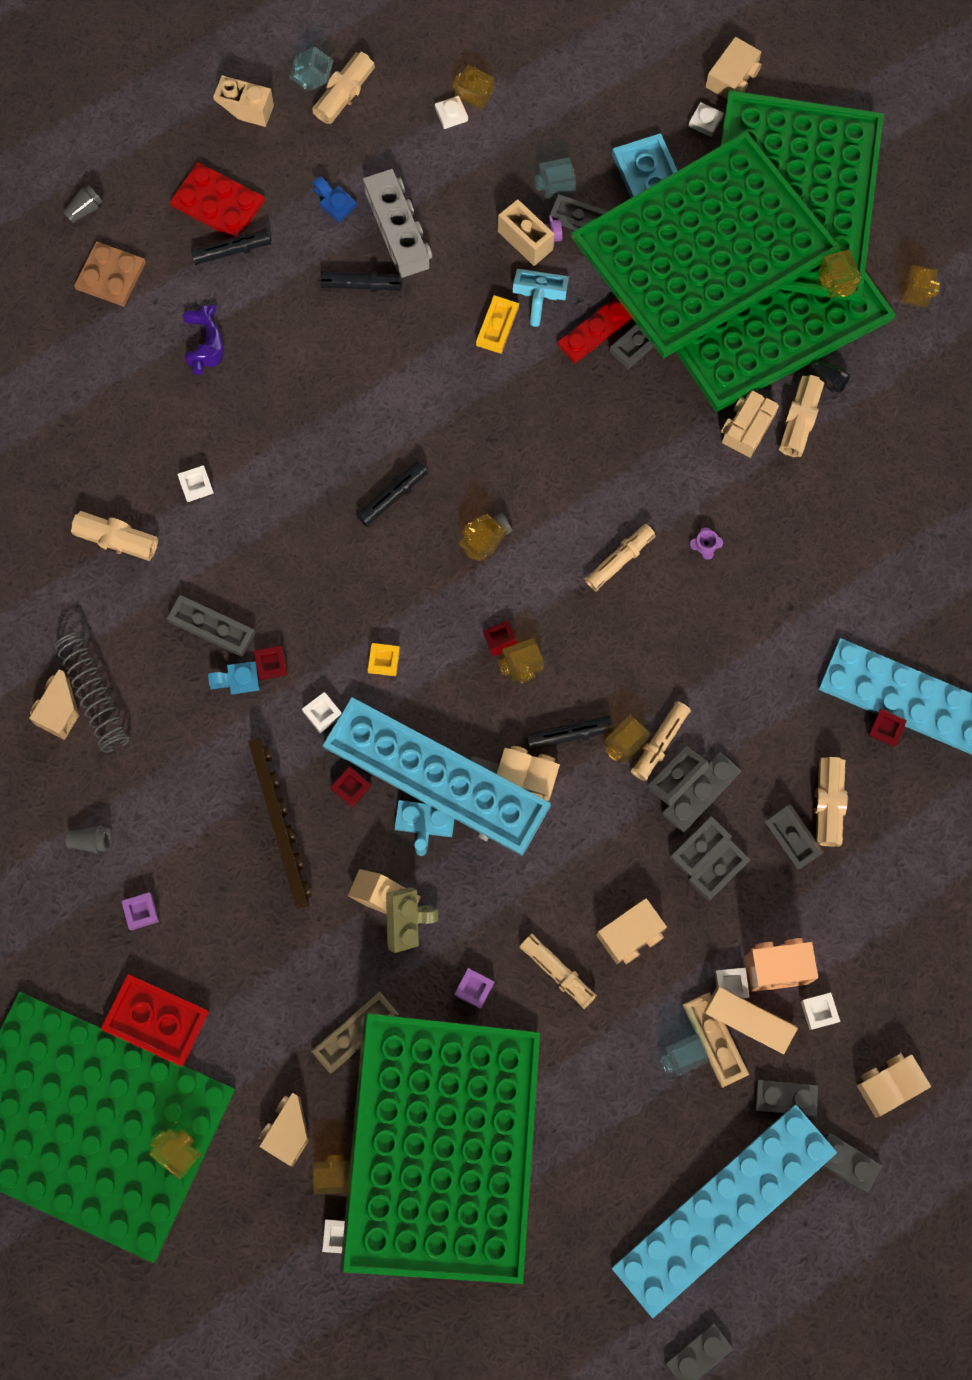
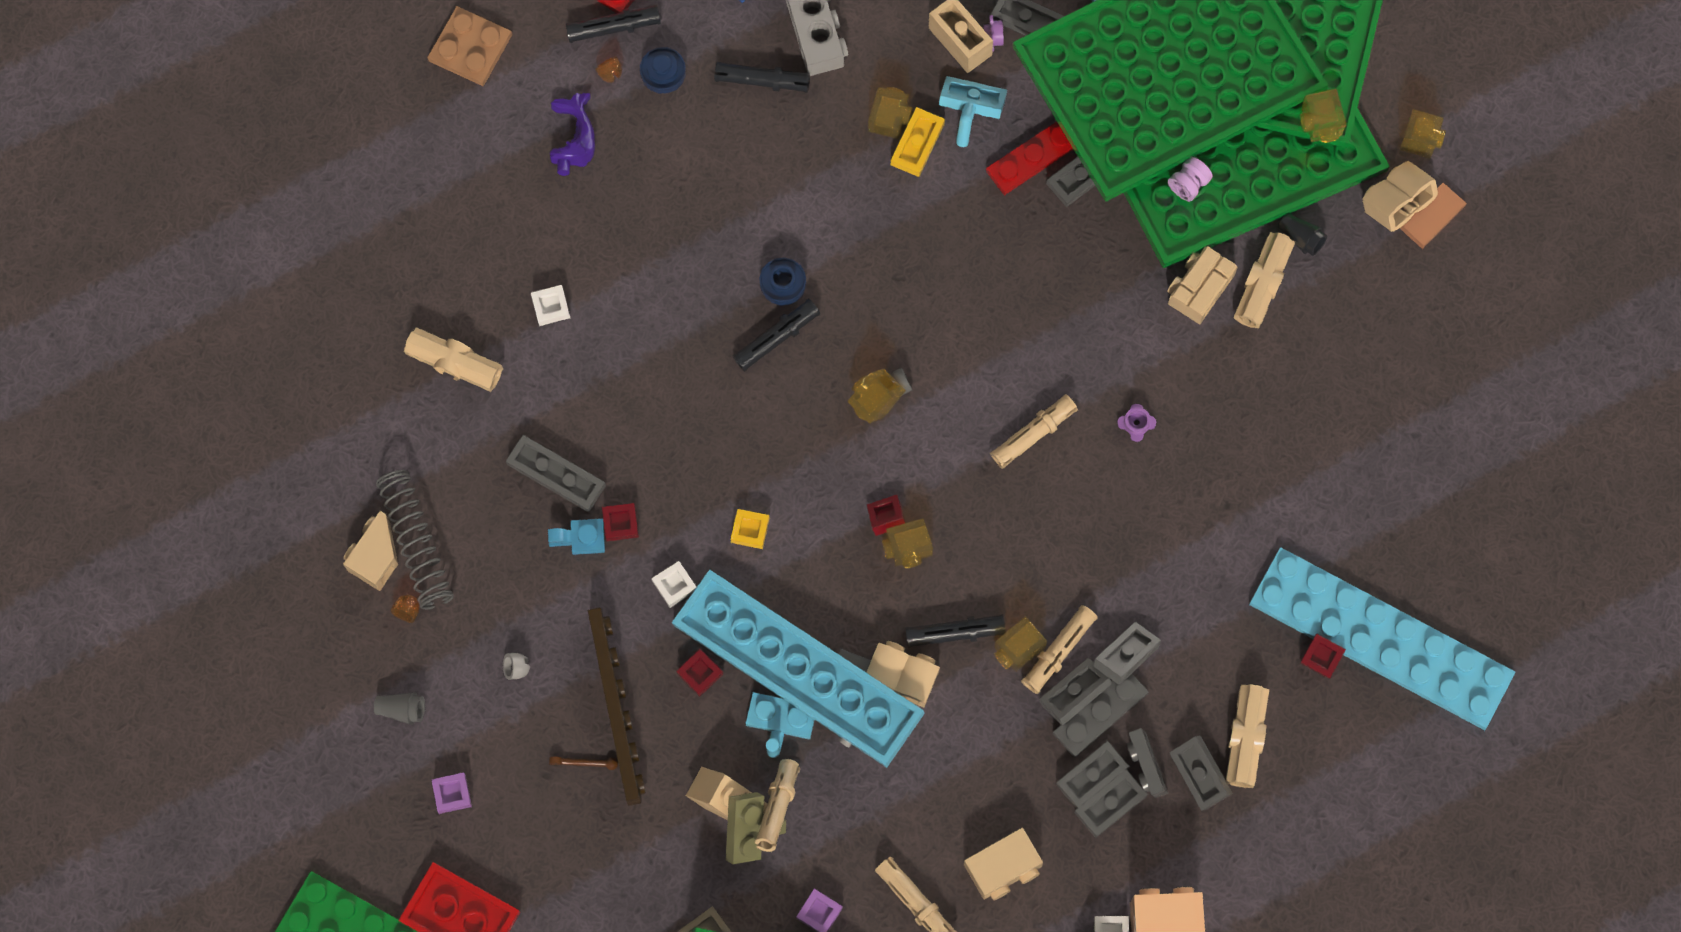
camera: 10 degrees right, 0 degrees up
(88, 752) = (406, 608): none -> clear orange hinge
(191, 792) = (519, 668): none -> light grey hinge
(230, 284) = (608, 68): none -> clear orange hinge
(276, 281) = (662, 70): none -> dark blue plate
(278, 873) = (611, 763): none -> reddish brown hinge
(393, 448) = (782, 281): none -> dark blue plate
(431, 887) = (781, 793): none -> tan pin
(471, 301) = (889, 112): none -> clear yellow brick
(720, 739) = (1127, 653): none -> dark grey plate
(734, 332) = (1190, 179): none -> lavender wheel
(741, 822) = (1141, 750): none -> dark grey plate
(907, 338) = (1400, 196): none -> tan brick
(935, 353) = (1432, 219): none -> nougat tile

